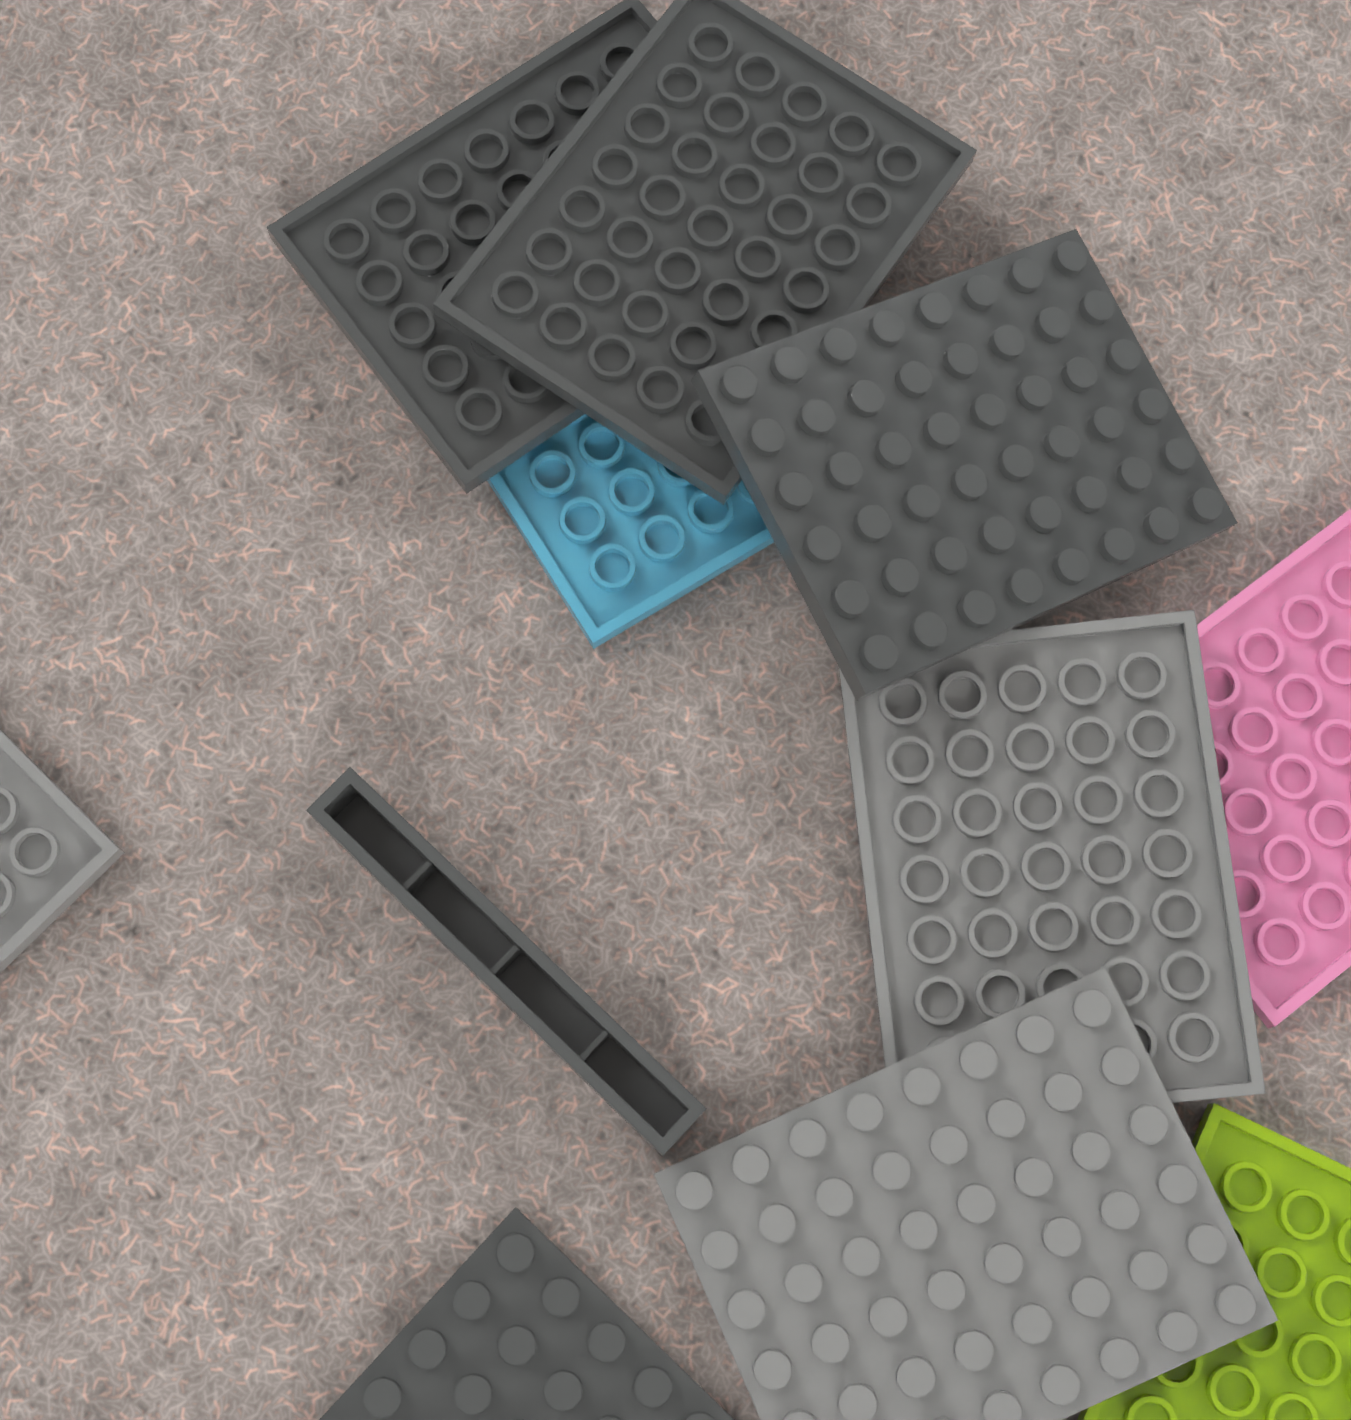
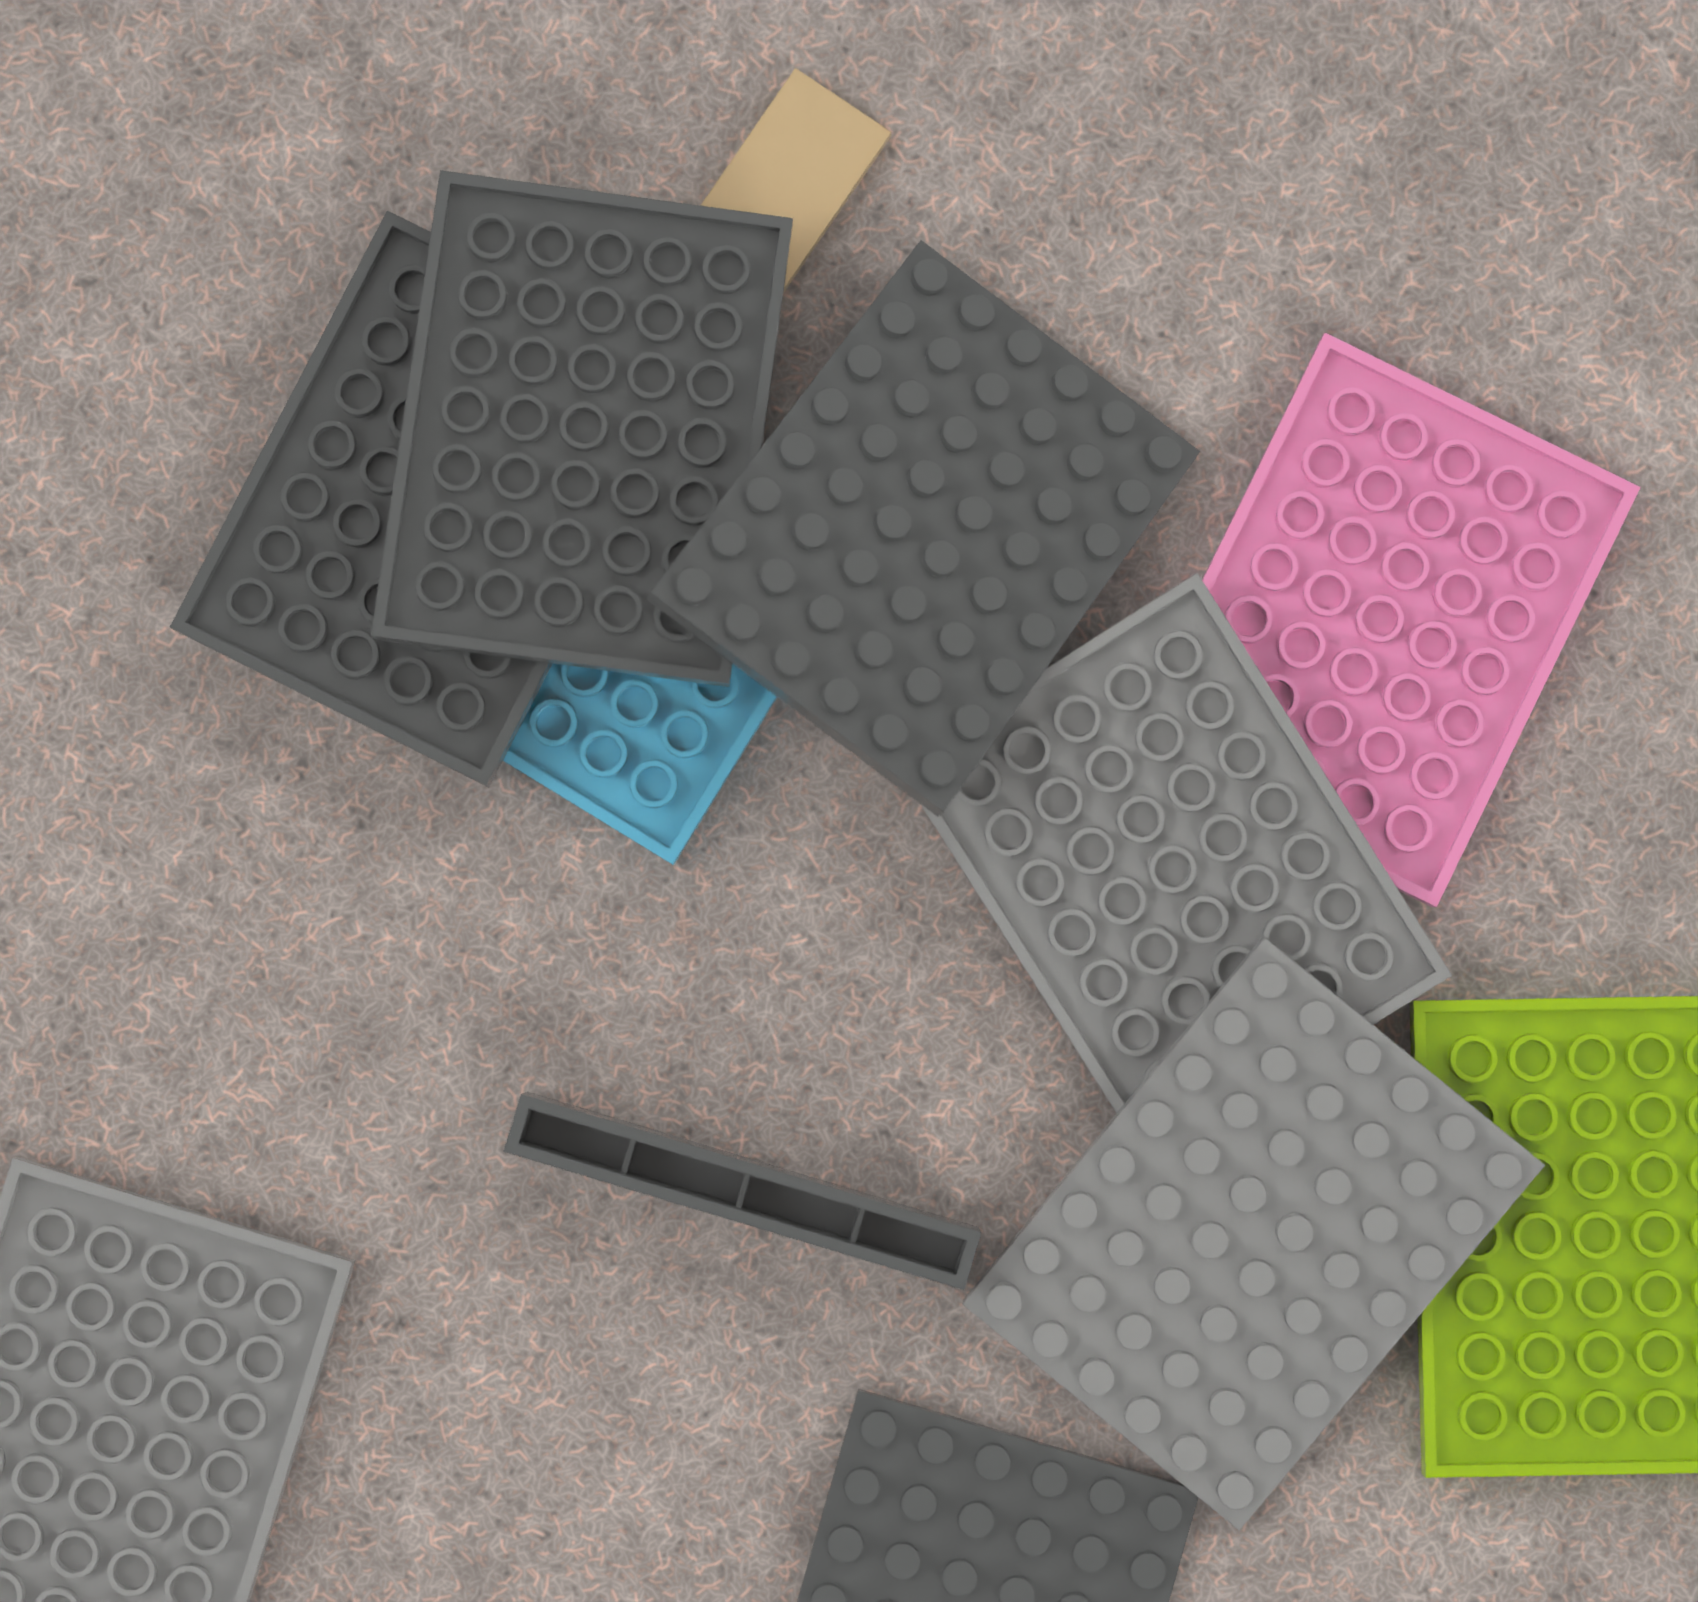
camera: 25 degrees left, 10 degrees up
(1015, 126) = (801, 163): none -> tan tile

